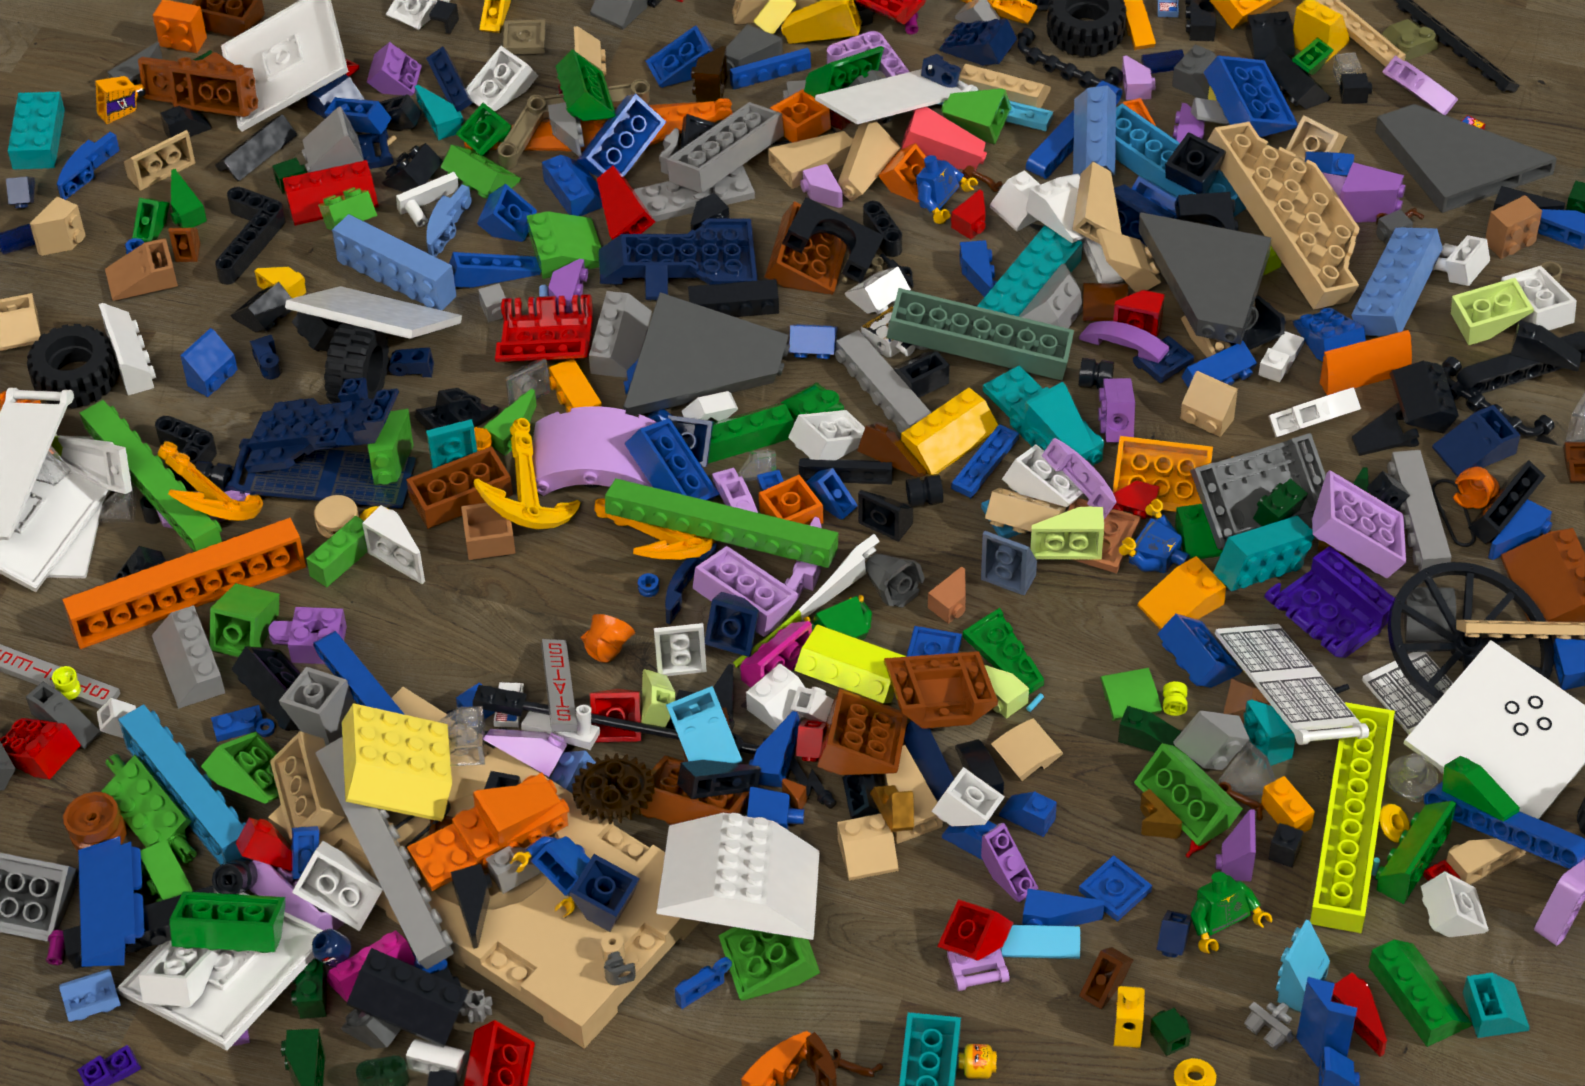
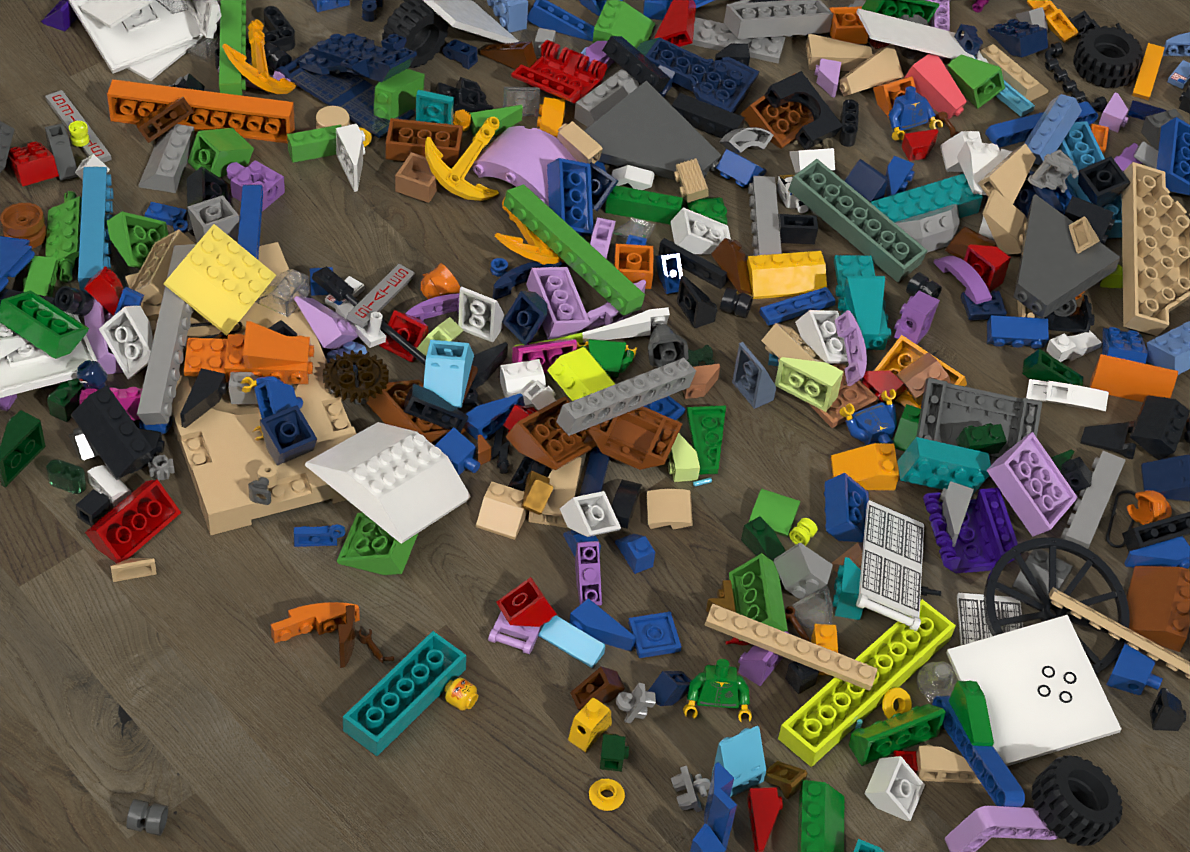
camera: 25 degrees right, 0 degrees up
(153, 615) = (164, 119): none -> reddish brown slope
(470, 335) = (511, 53): none -> reddish brown slope
(620, 277) = (635, 63): none -> black brick
(641, 647) = (435, 307): none -> medium lavender slope
(642, 401) = (579, 143): none -> tan slope
(780, 380) = (691, 180): none -> tan brick
(795, 302) = (743, 138): none -> light grey brick
(904, 269) = (840, 156): black hand -> none
(911, 654) = (625, 396): none -> light grey brick
(934, 564) = (704, 354): none -> clear green piece
(958, 285) = (867, 181): none -> dark blue slope
(1139, 178) = (1054, 171): none -> light grey piece
(1156, 967) = (636, 702): none -> light grey hips
(1171, 469) = (917, 372): none -> nougat slope
(1209, 404) = (989, 349): tan slope -> none
(1221, 233) = (1083, 234): none -> tan slope
(1267, 822) = (791, 647): none -> tan plate
(1278, 395) = (1046, 368): none -> dark green slope
(1301, 586) = (954, 507): none -> light grey slope
(1350, 956) = (785, 776): none -> pearl gold slope

